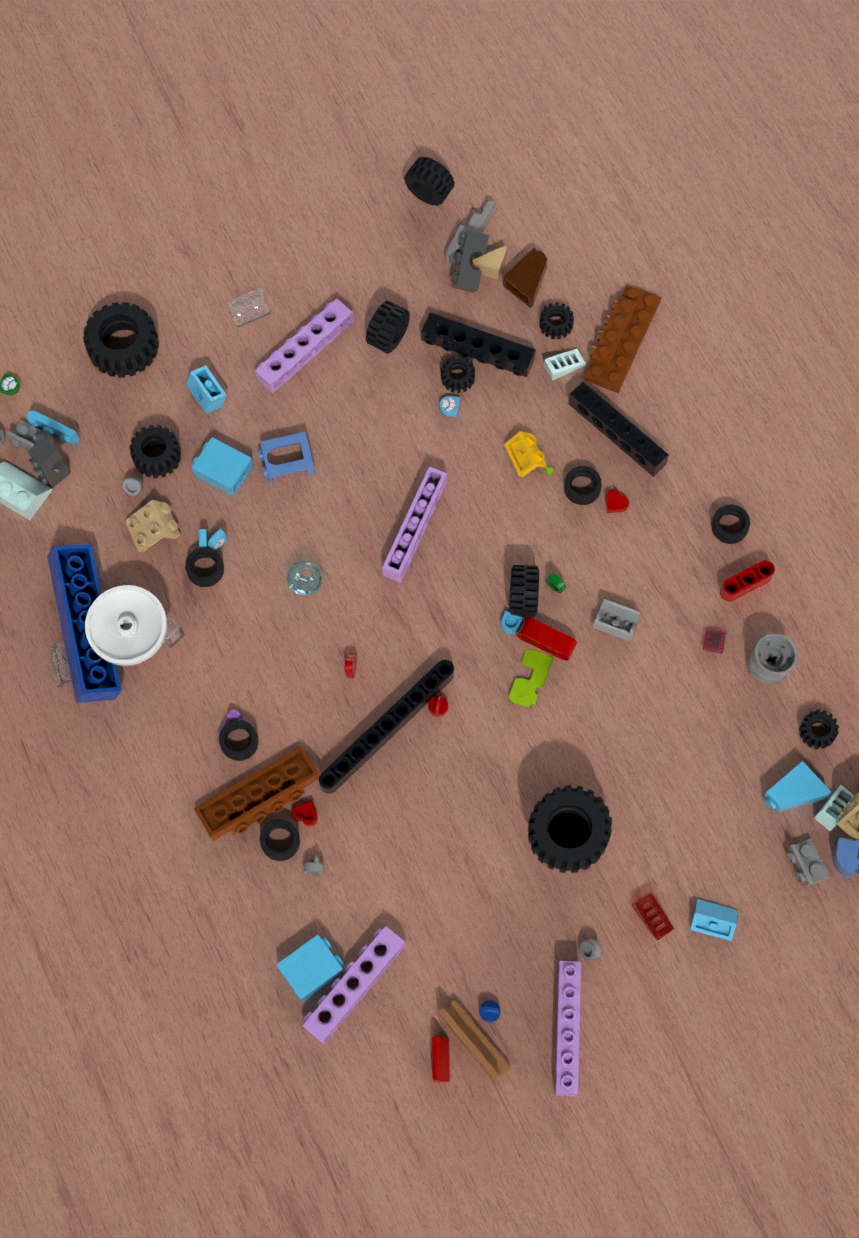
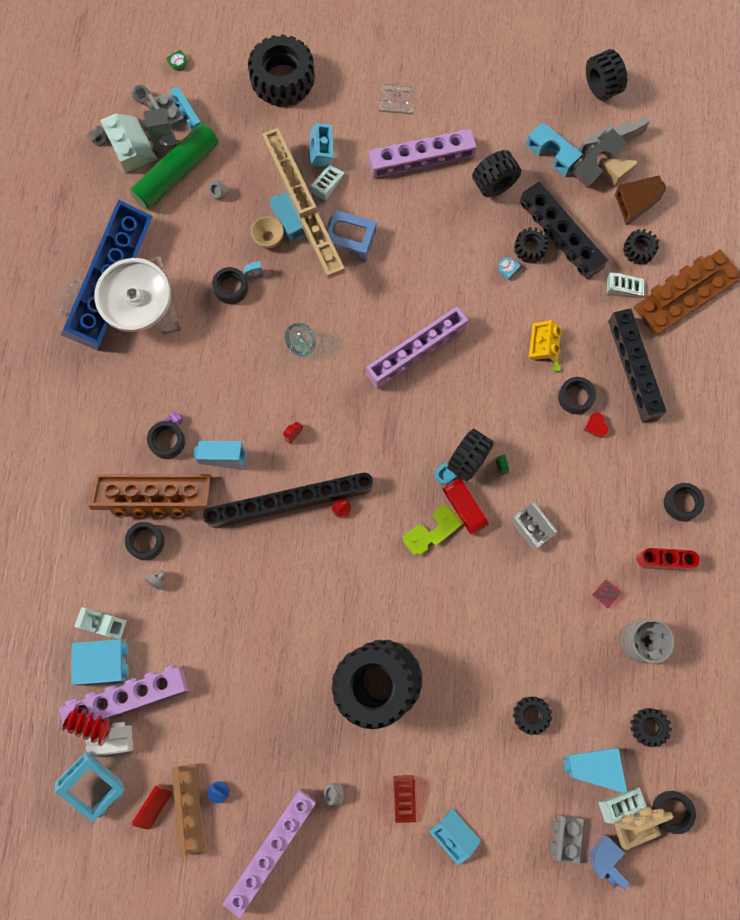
camera: 30 degrees right, 5 degrees up
(77, 487) = (174, 166): none -> green cylinder
(151, 525) = (212, 227): tan bracket -> none
(155, 437) = (247, 160): black tyre -> none
(203, 538) = (243, 261): medium azure tile -> none
(204, 491) = (267, 225): none -> tan piece
(227, 452) = (303, 204): none -> tan slope
(232, 433) = (325, 193): none -> light aqua slope
(291, 933) = (100, 623): none -> light aqua brick
(299, 721) = (221, 454): none -> medium azure slope
(305, 813) = (180, 531): red tile -> none
(341, 1020) = (87, 726): none -> red piece
(357, 1067) = (75, 772): none -> medium azure window
(364, 1027) = (119, 741): none -> white brick
(410, 269) = (544, 139): none -> medium azure arch
(715, 792) = (541, 706): none -> black tyre

